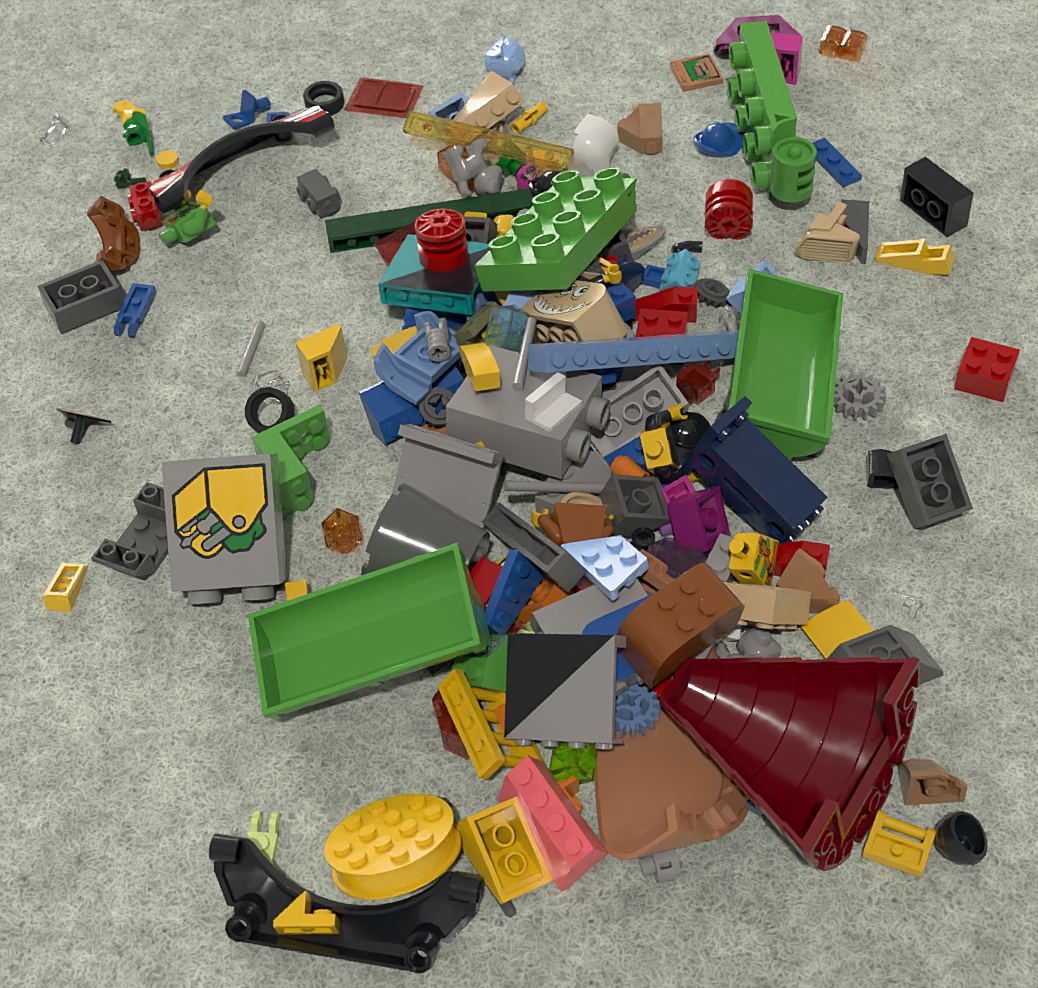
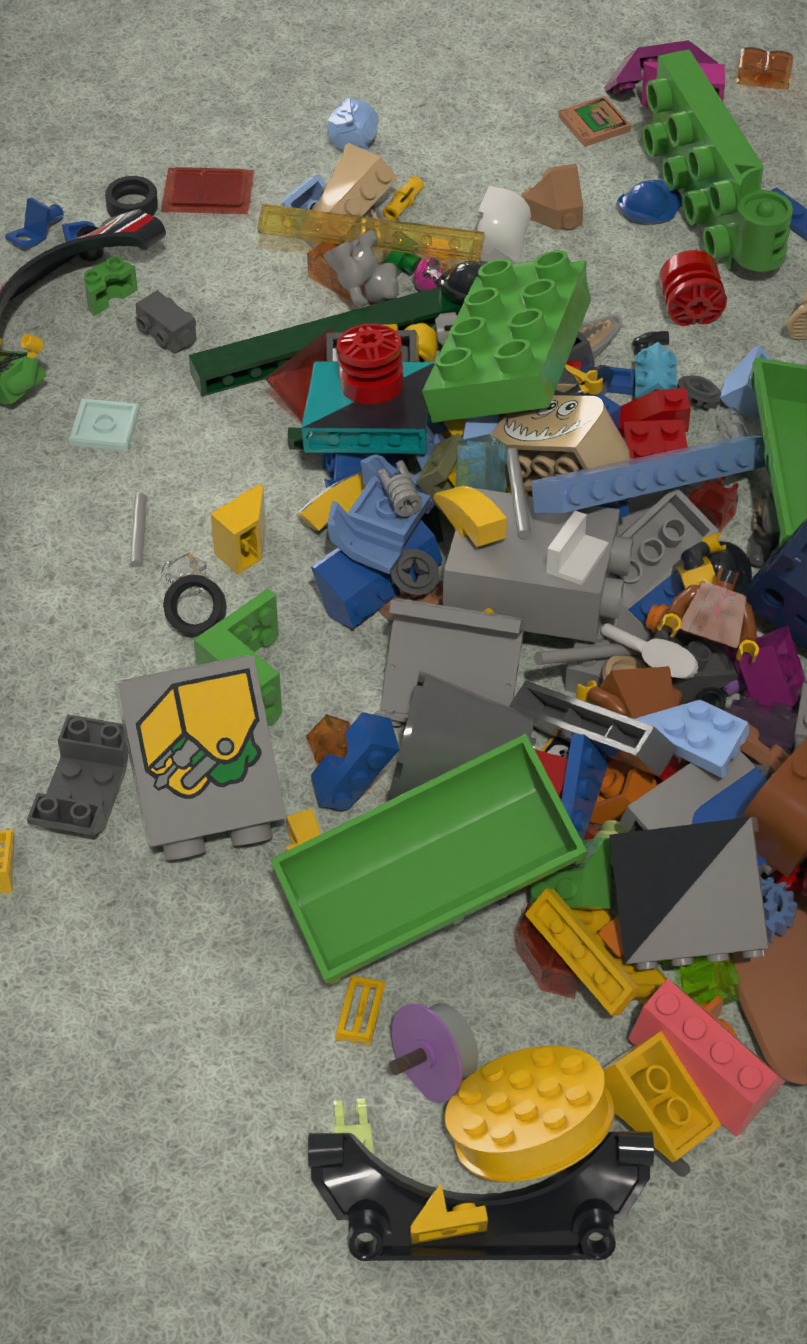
camera: 15 degrees left, 0 degrees up
(251, 266) = (104, 424): none -> light aqua tile
(283, 159) = (109, 281): none -> bright green cylinder
(290, 763) = (355, 1036): none -> yellow tile
(337, 782) = (433, 1049): none -> medium lavender piece
(340, 557) = (370, 748): none -> blue arch
(604, 494) = (657, 652): none -> white piece
(654, 469) = (715, 614): none -> dark orange torso

